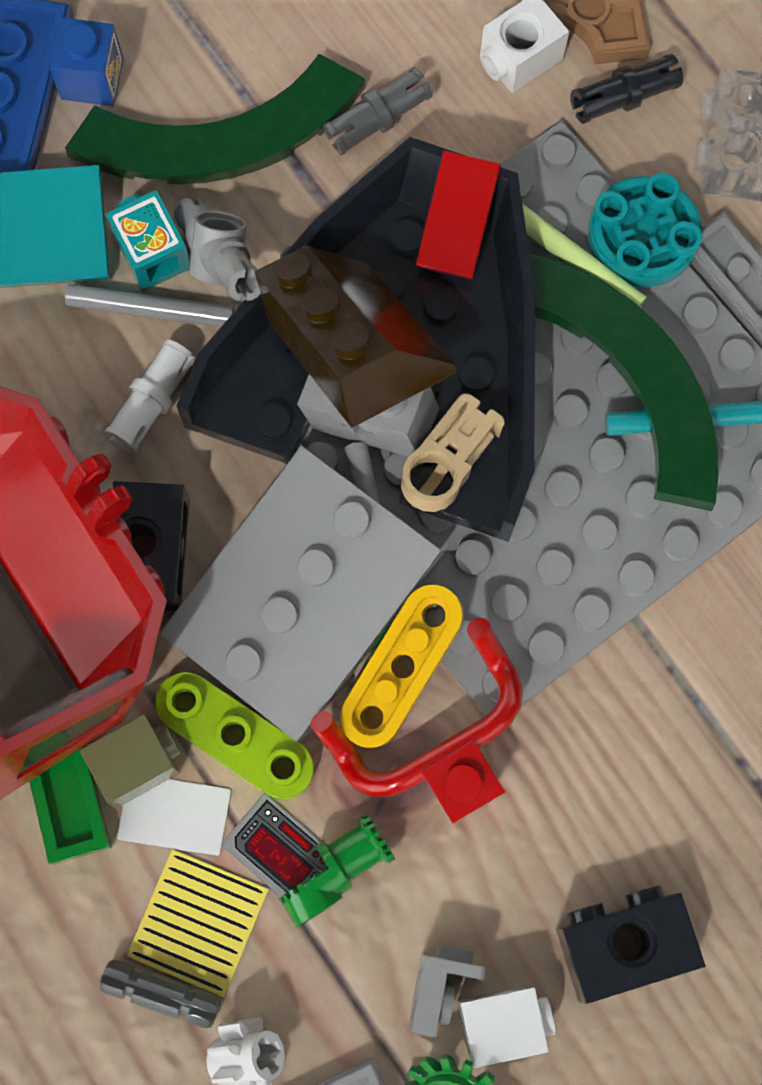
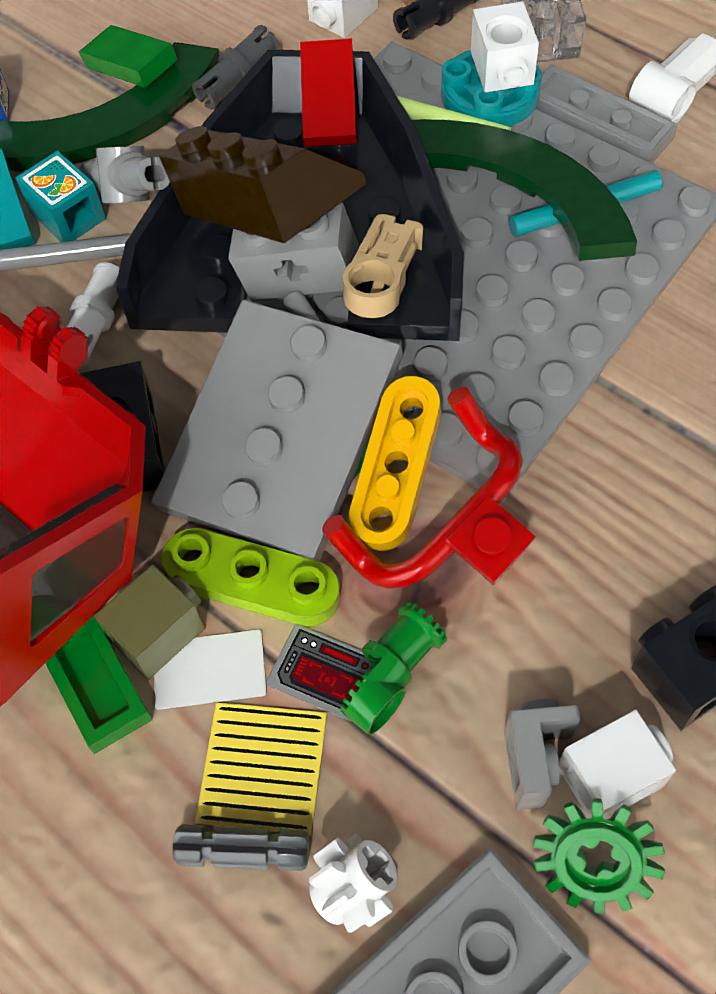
camera: 10 degrees left, 15 degrees down
(263, 60) = (128, 55): none -> green tile
(672, 188) = (504, 46): none -> white brick

